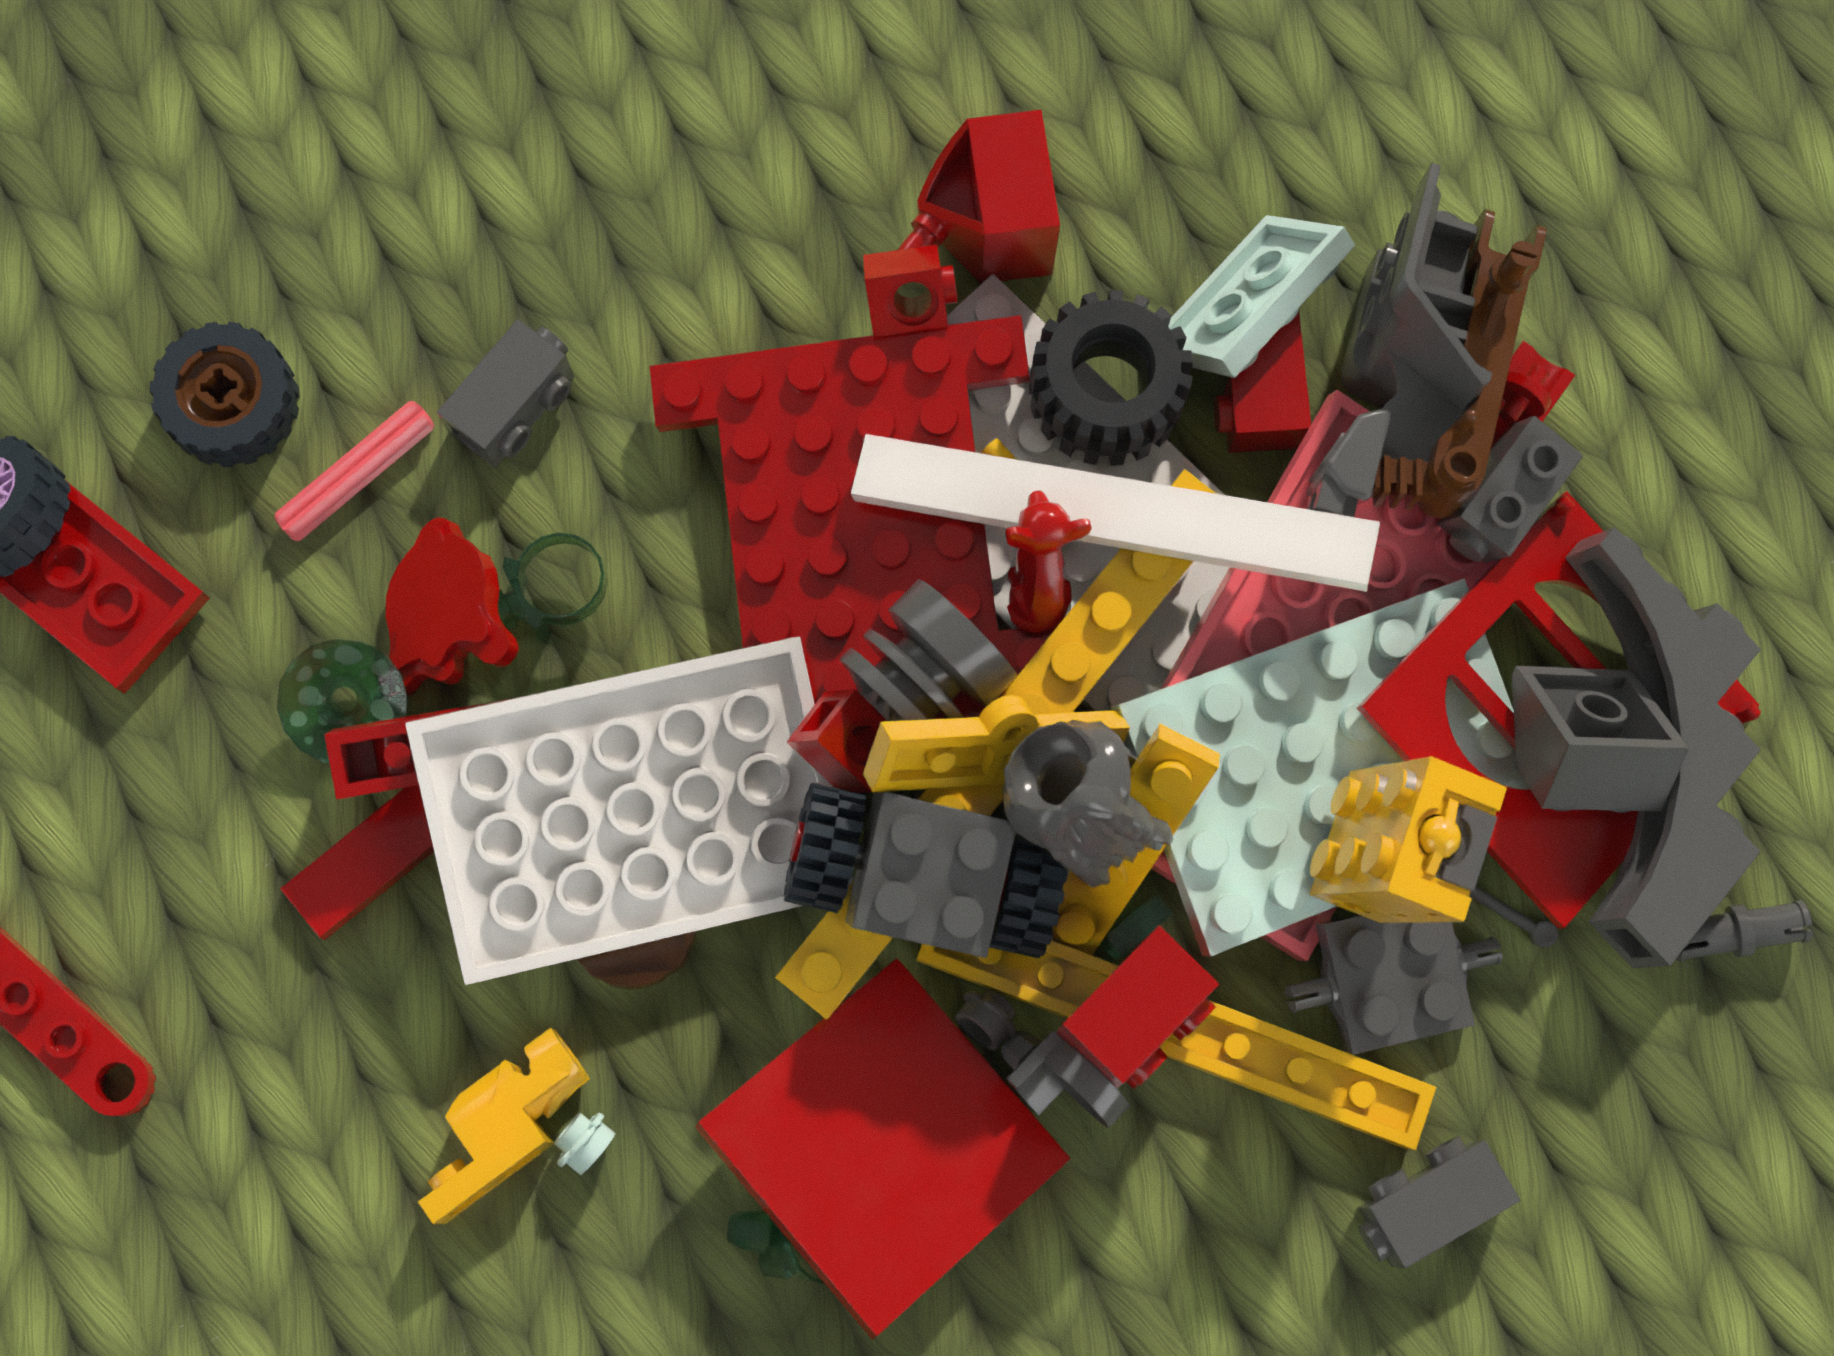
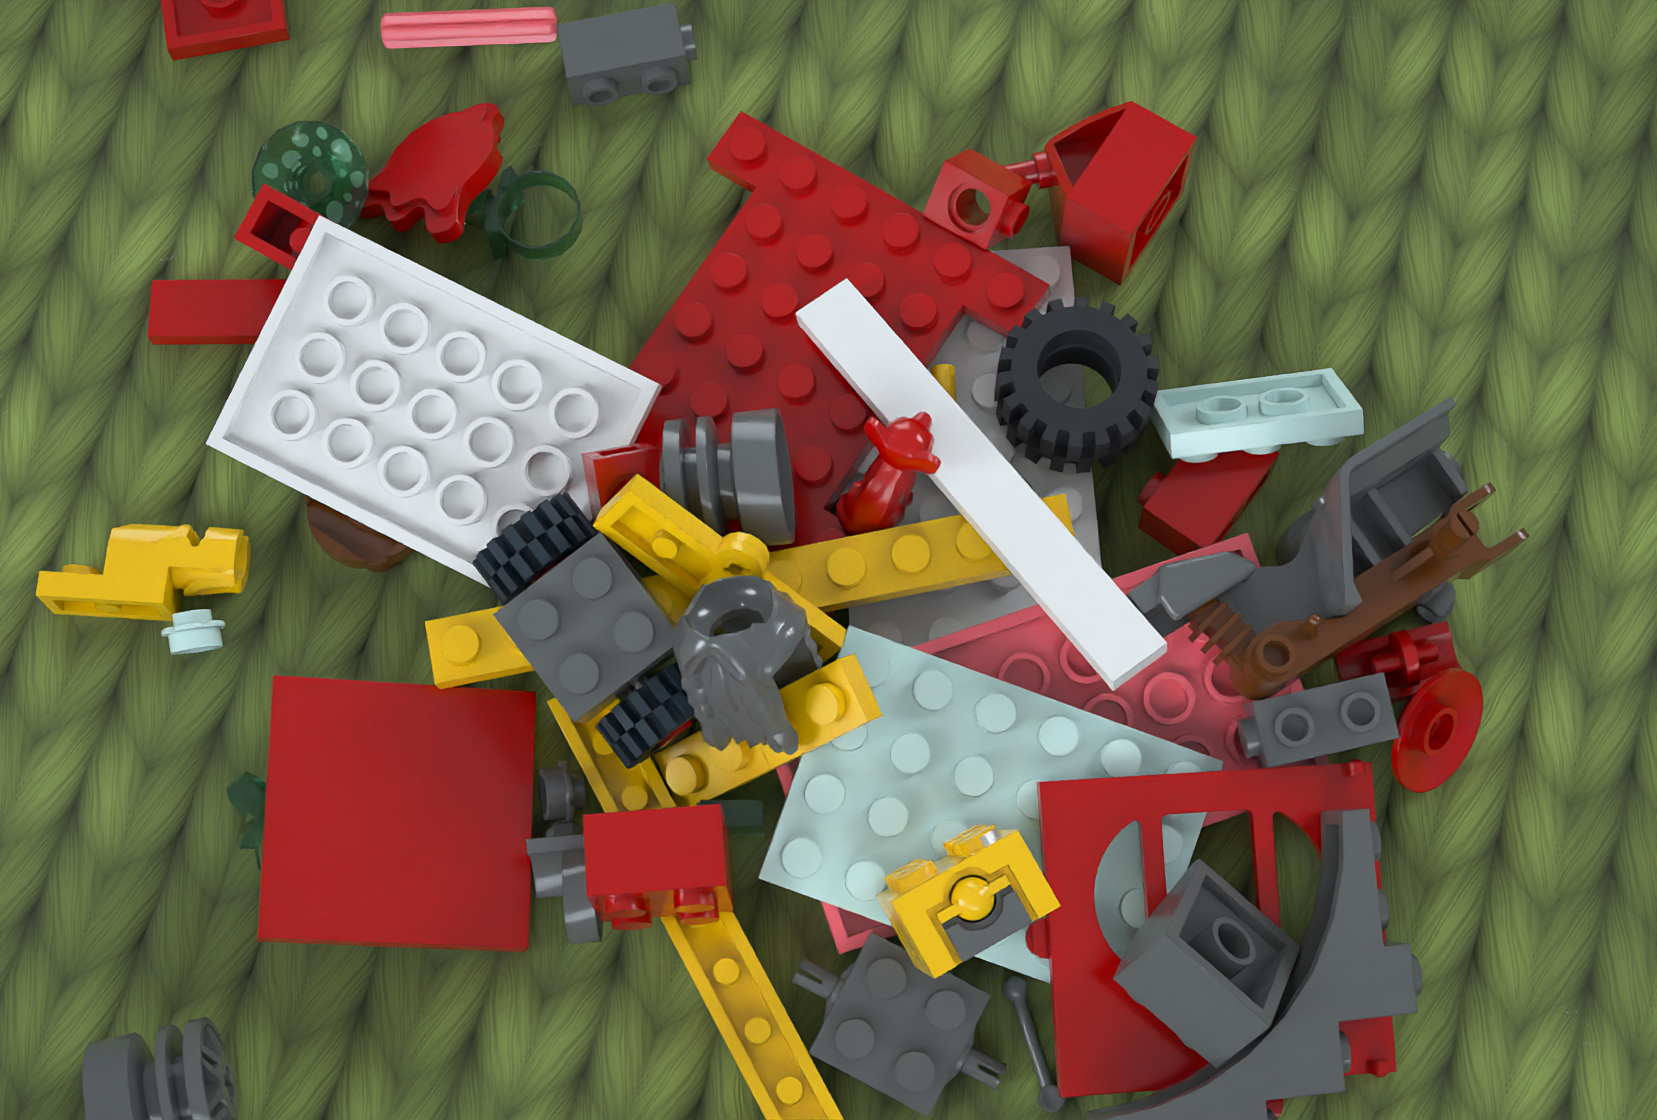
camera: 45 degrees right, 5 degrees down
(1584, 427) = (1437, 730): none -> red dish

